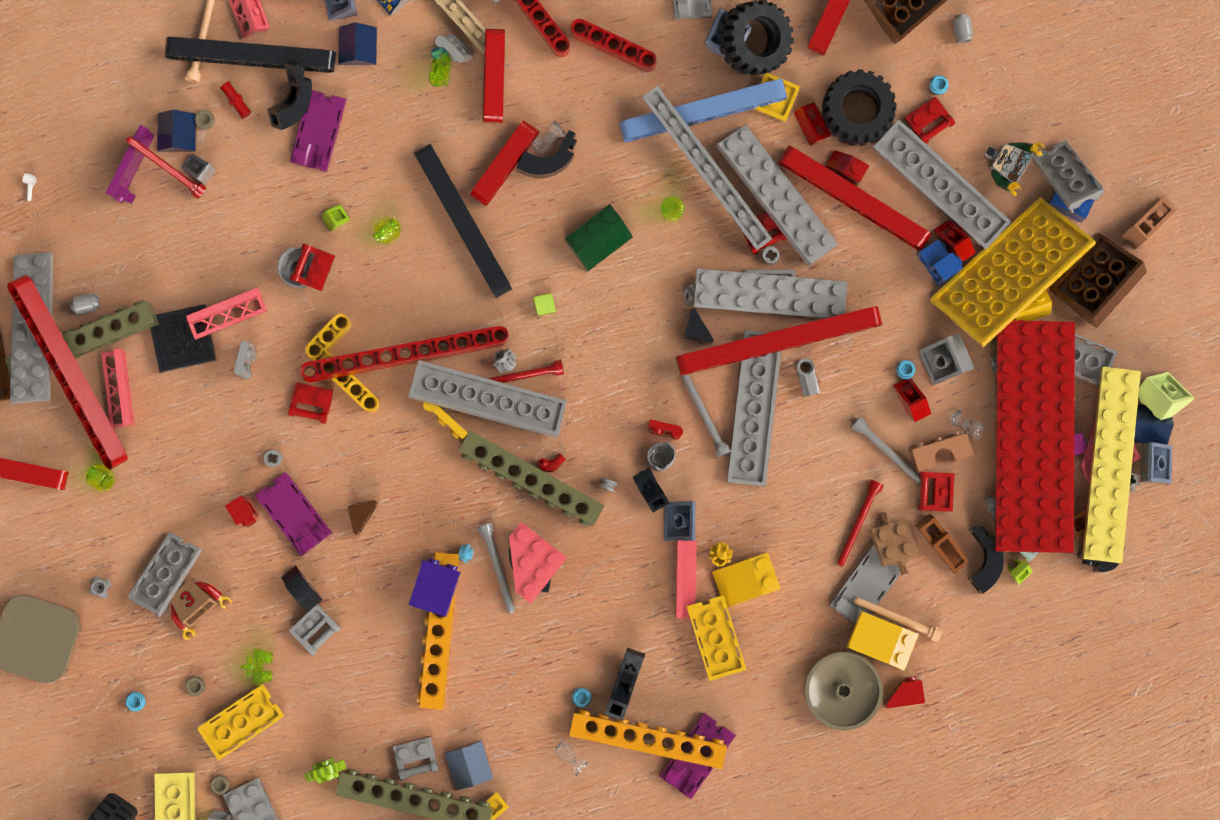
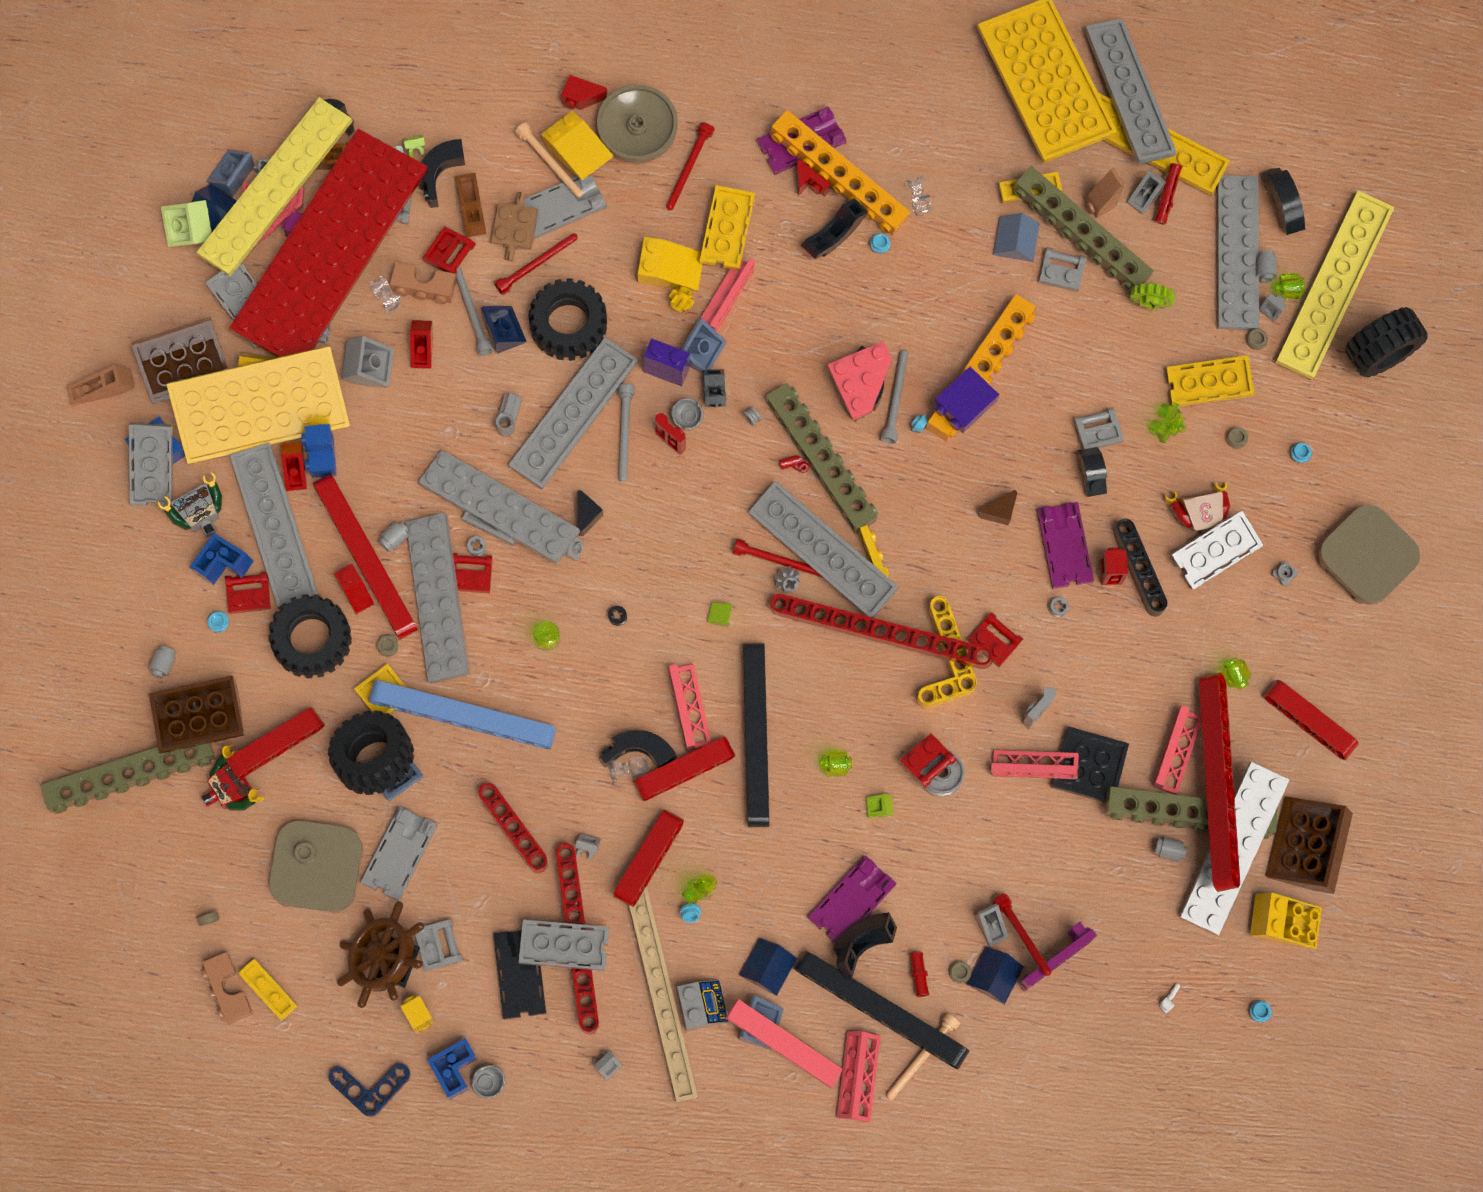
camera: 155 degrees left, 10 degrees down
(213, 521) = (1140, 577): none -> black beam
(455, 47) = (669, 898): light grey plate -> none
(533, 210) = (681, 704): none -> coral fence
(548, 63) = (587, 843): none -> light grey tile
(598, 237) = (633, 649): dark green slope -> none
(628, 264) = (619, 609): none -> black bush
(675, 723) = (807, 176): none -> red slope
(701, 487) = (666, 362): none -> dark purple brick
(707, 167) = (491, 654): light grey plate -> none
(779, 340) = (516, 457): red beam -> none
(782, 716) = (704, 132): none -> red piece
(794, 137) = (387, 645): none -> dark tan tile
(812, 123) = (363, 650): red slope -> none
(830, 483) = (568, 294): none -> black tyre
(841, 226) = (393, 536): none -> light grey brick
(854, 450) = (503, 327): none -> dark blue slope
(905, 369) = (411, 374): medium azure plate -> none
(968, 133) = (217, 557): none -> blue brick

